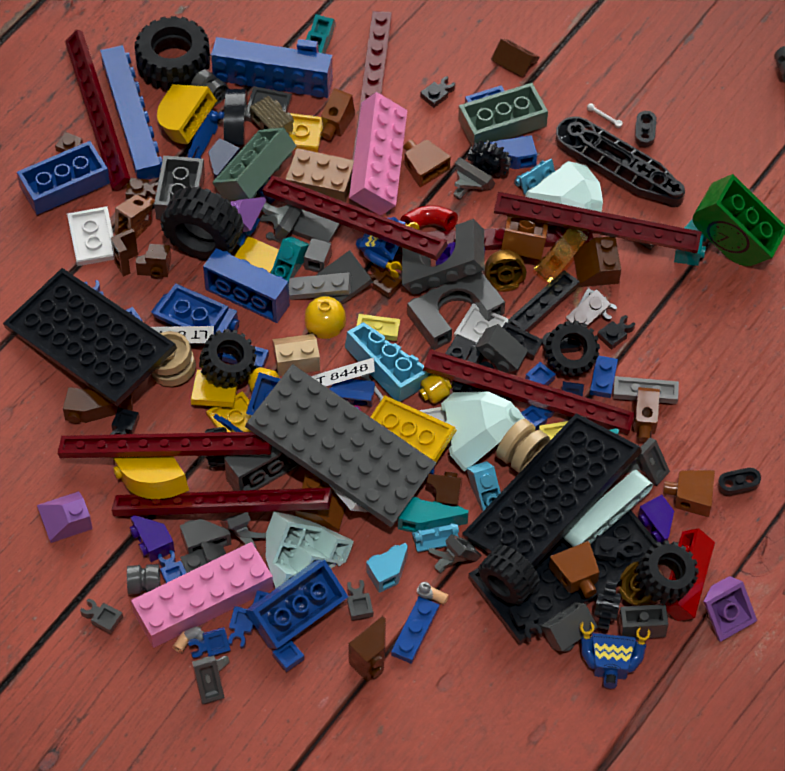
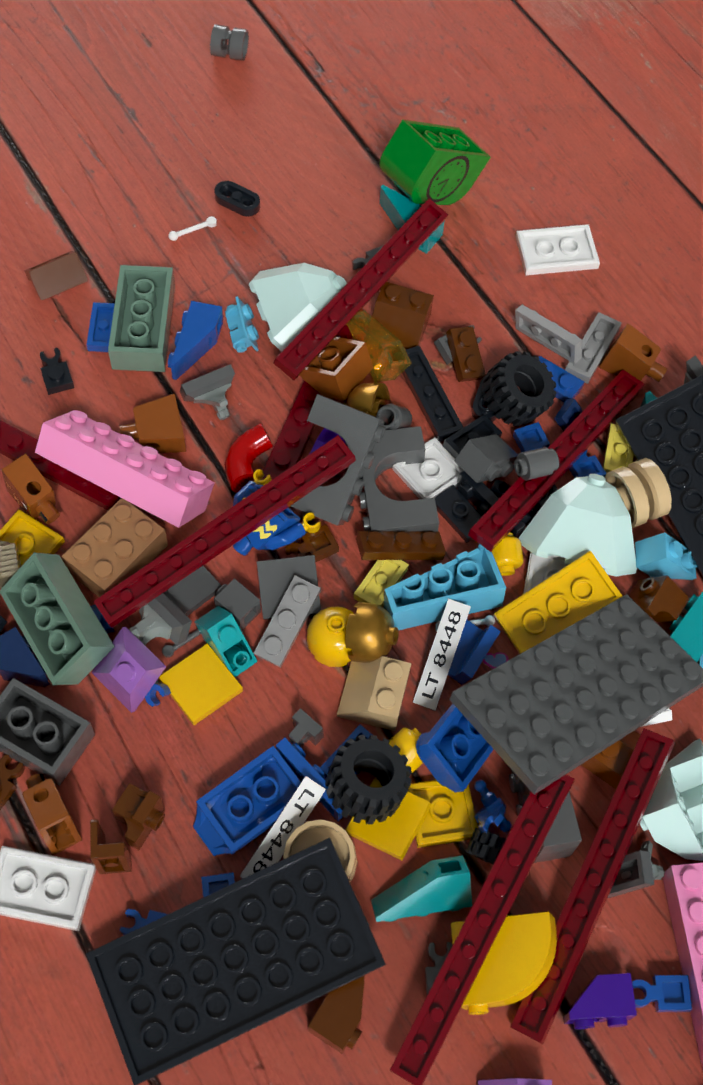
camera: 70 degrees left, 5 degrees up
(124, 421) = (397, 970): black plate -> none
(142, 578) = (670, 1040): dark grey wheel -> none
(175, 419) = (430, 889): none -> teal slope
(201, 222) = (131, 721): black tyre -> none
(203, 531) = (624, 932): dark grey slope -> none
(208, 553) = (657, 942): dark grey slope -> none
(246, 285) = (249, 707): blue brick -> none
(251, 323) = (305, 729): none -> dark grey tile
(329, 325) = (370, 633): none -> pearl gold cylinder
(408, 326) = (400, 545): none -> reddish brown plate
(489, 158) = (202, 354): black gear -> none
(503, 369) = (536, 463): none -> dark grey brick
(505, 286) = (395, 416): none -> dark grey brick
(615, 333) = (496, 343): black plate -> none
(619, 161) = (267, 240): black beam -> none
(635, 354) = (548, 334): none -> light grey plate
(729, 341) = (557, 249): none -> white tile

